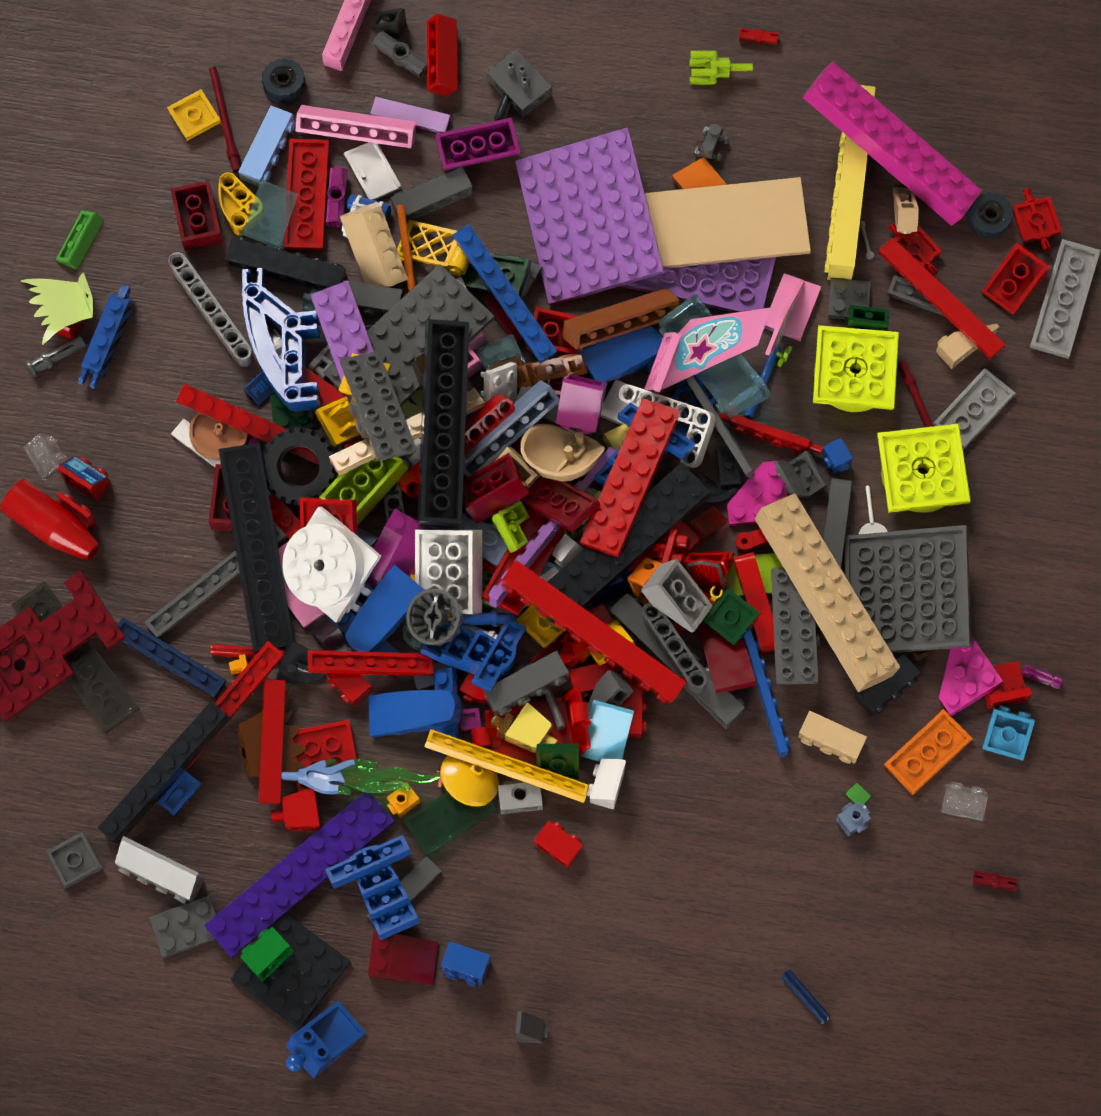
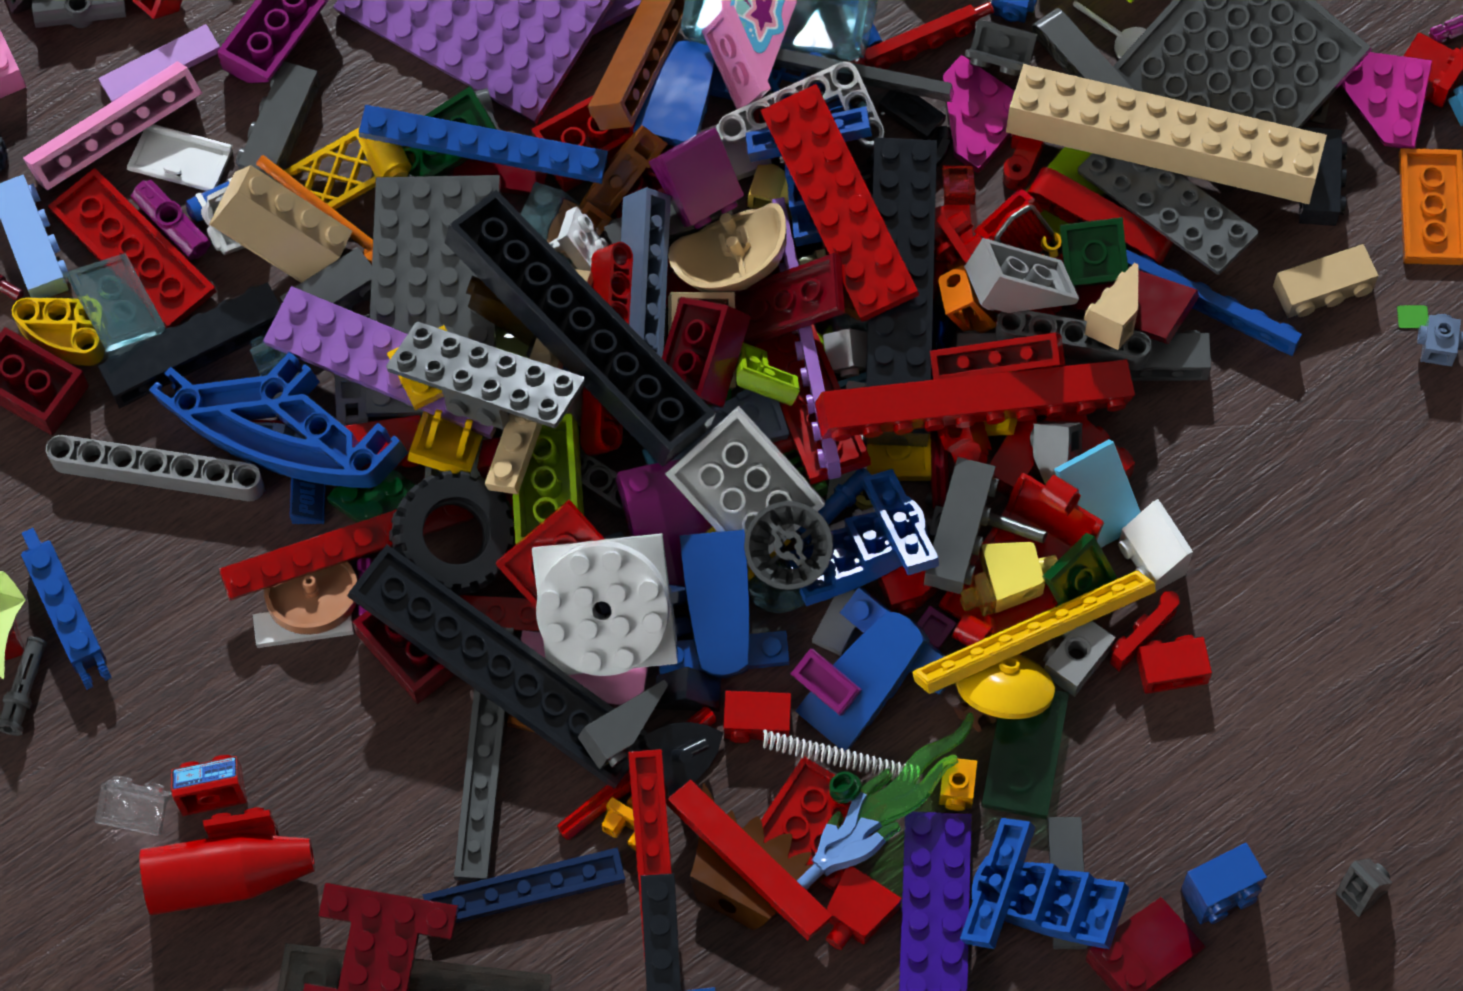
camera: 45 degrees left, 5 degrees down
(276, 627) = (615, 732): none -> dark grey slope
(348, 751) = (845, 787): none -> dark green plate
(360, 732) = (830, 753): none -> white piece
(369, 663) = (763, 670): red plate -> none
(391, 696) = (826, 682): none -> magenta tile
(564, 815) = (1145, 630): none -> red plate
(625, 622) = (999, 356): none -> red brick
(699, 655) = (1115, 313): none -> tan slope

